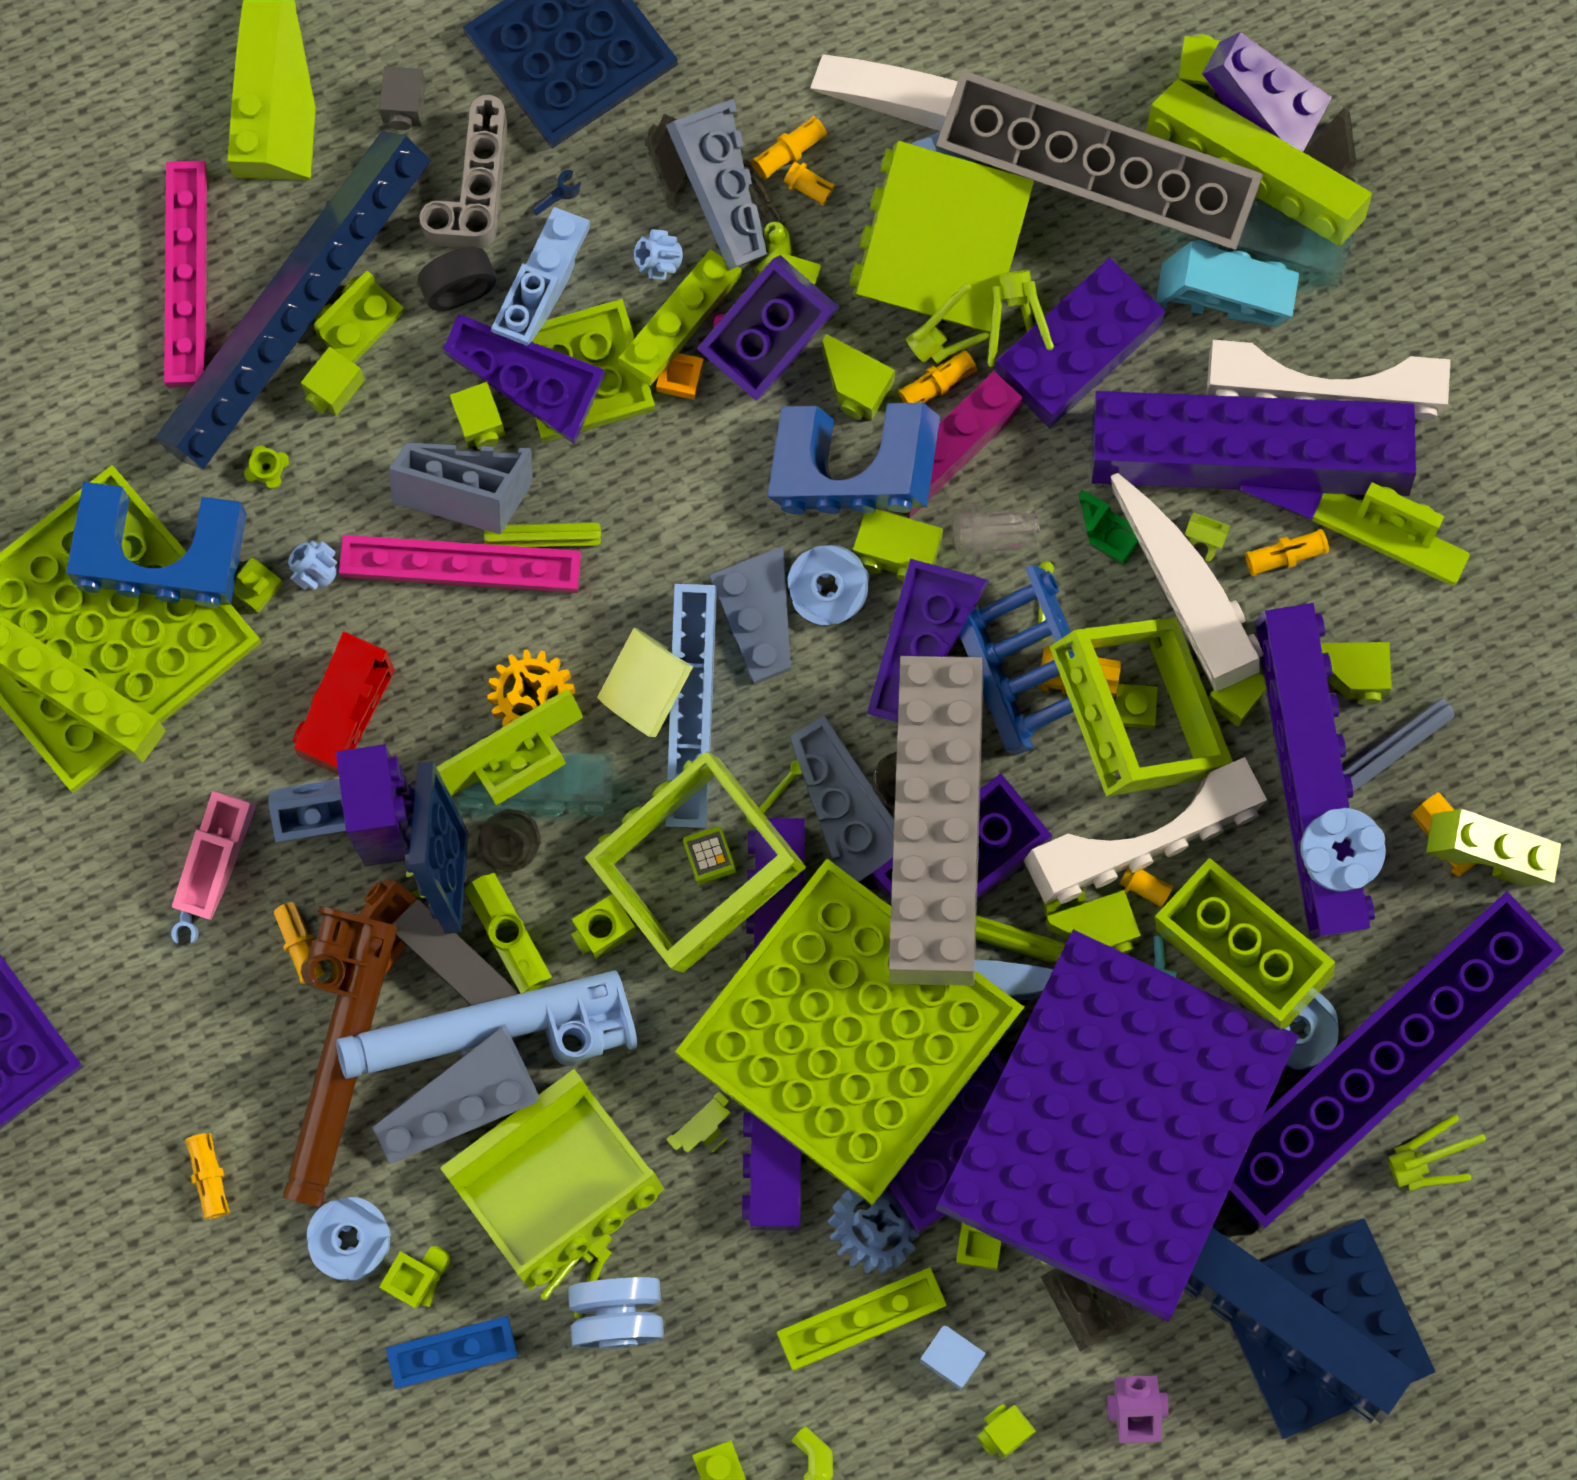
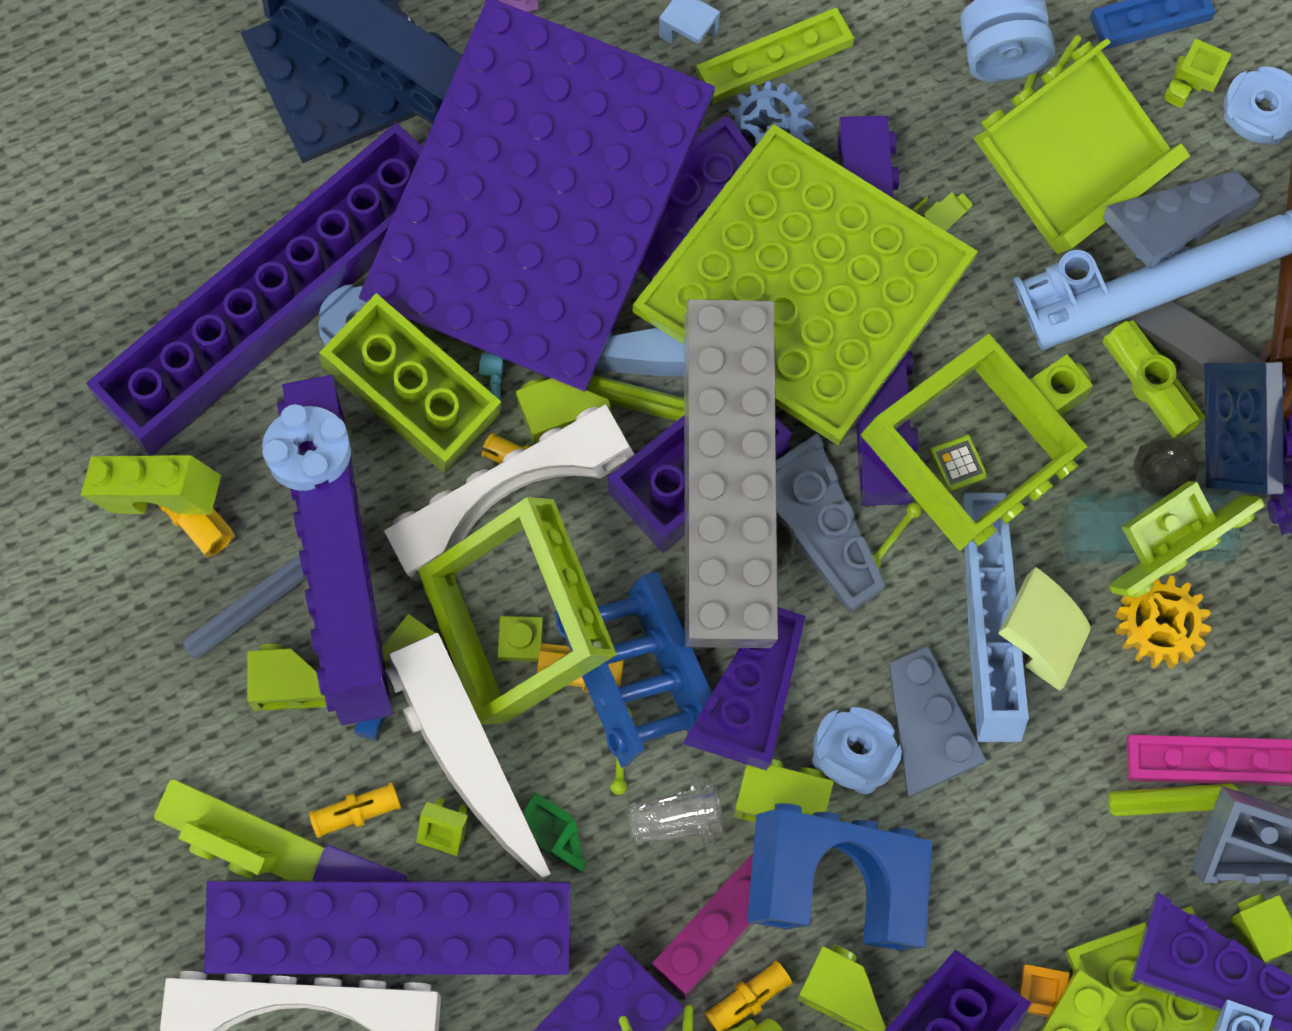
camera: 175 degrees right, 5 degrees down
(1410, 1166) = (253, 203): lime plant -> none

